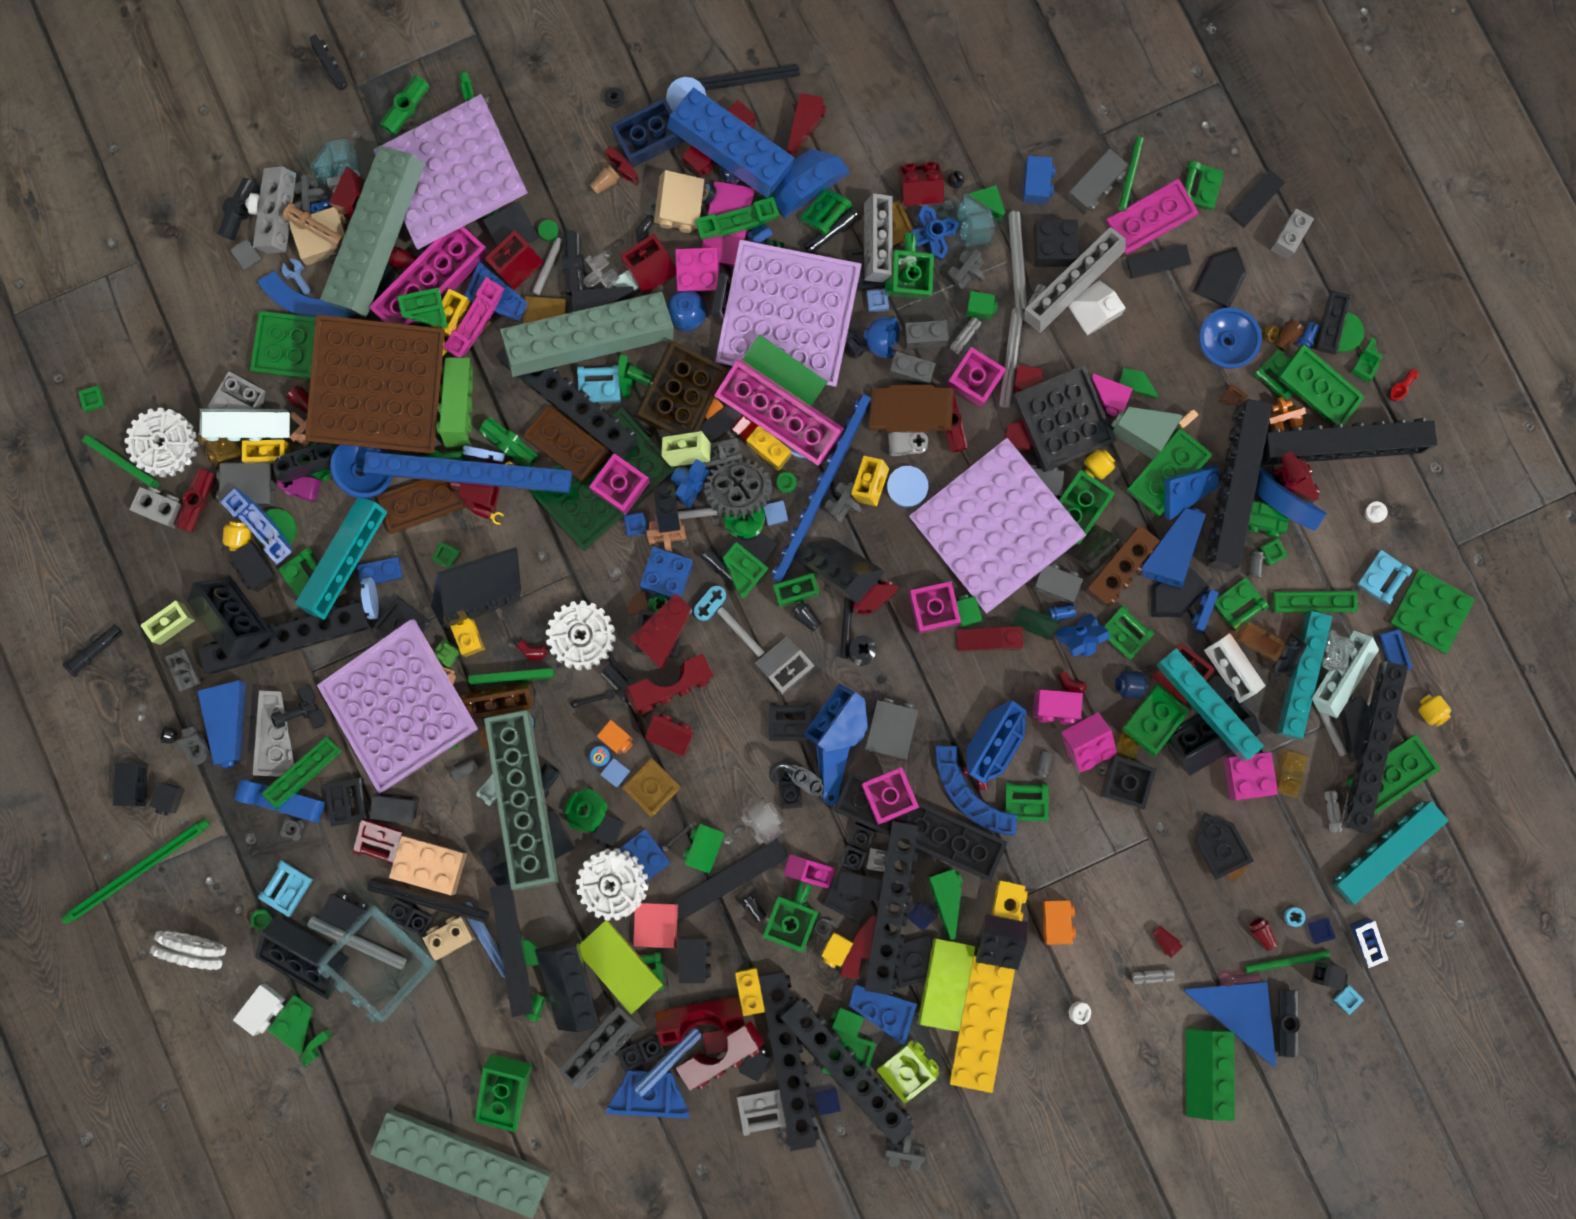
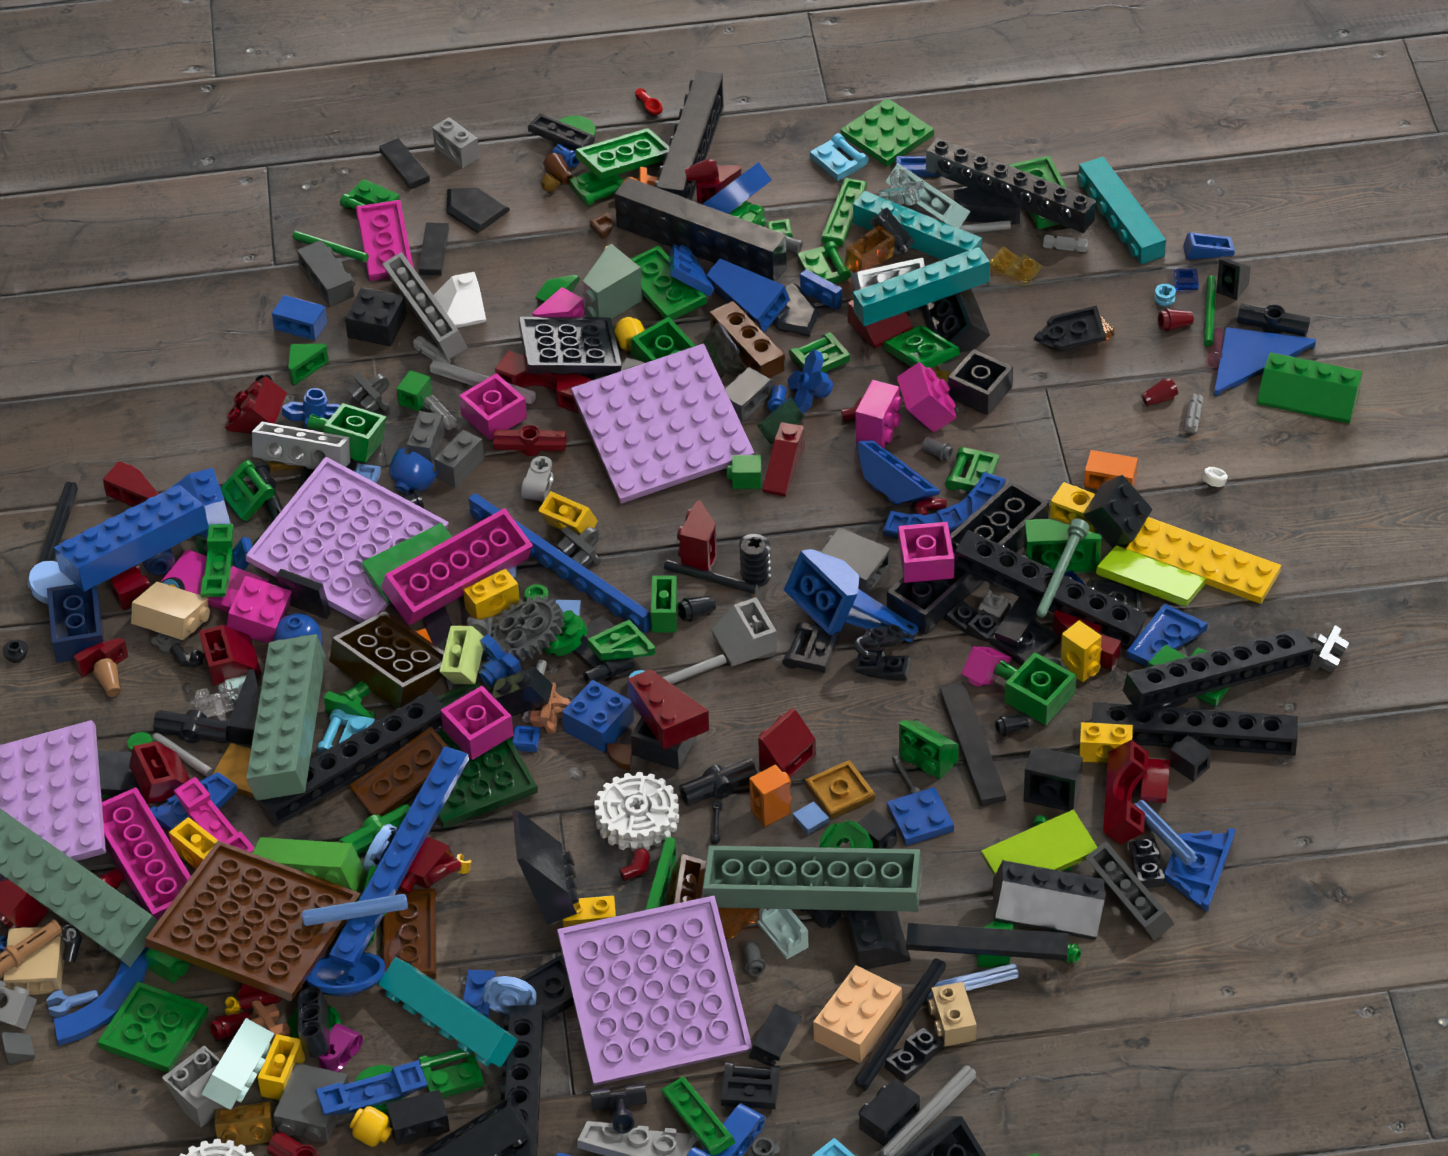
camera: 70 degrees left, 35 degrees down
(342, 986) = (908, 1061): clear light blue window -> none
(378, 835) = (803, 1056): plate -> none
(399, 458) = (354, 909): none -> medium blue axle
(424, 307) = (183, 853): green wing -> none
(445, 555) = (486, 926): green tile -> none
(461, 1163) = (1228, 1058): sand green brick -> none
(502, 1092) = (1156, 1000): green slope -> none
(600, 756) = (786, 828): tile -> none
(617, 868) = (952, 822): white piece -> none
(645, 694) = (732, 748): dark red arch -> none
(652, 602) = (626, 731): green bush -> none
(656, 925) = (1001, 813): coral tile -> none
(700, 1068) = (1161, 746): arch -> none
(744, 427) = (457, 612): red tile -> none
(758, 1105) = (1238, 765): light grey plate -> none
(764, 820) = (914, 684): clear brick -> none
(828, 1102) = (1252, 704): clear blue tile -> none
(840, 568) = (659, 549): black slope -> none
(907, 486) = (588, 491): light blue tile -> none
(909, 1071) = (1235, 622): lime plate -> none
(911, 409) = (504, 461): reddish brown piece -> none
(934, 607) = (731, 493): dark pink brick -> none
(946, 918) = (1077, 531): none -> sand green piece
(976, 221) = (320, 367): clear light blue slope -> none
(1017, 260) = (379, 354): light grey axle -> none
(1131, 684) = (876, 360): dark blue head -> none
(1239, 329) = (542, 205): blue dish -> none
(1251, 777) = (1008, 292): dark pink brick -> none
(1348, 999) = (1263, 275): medium azure tile -> none
(1368, 362) = (612, 122): green slope -> none
(1375, 512) = (769, 149): white tile -> none
(1434, 710) = (989, 145): yellow head -> none

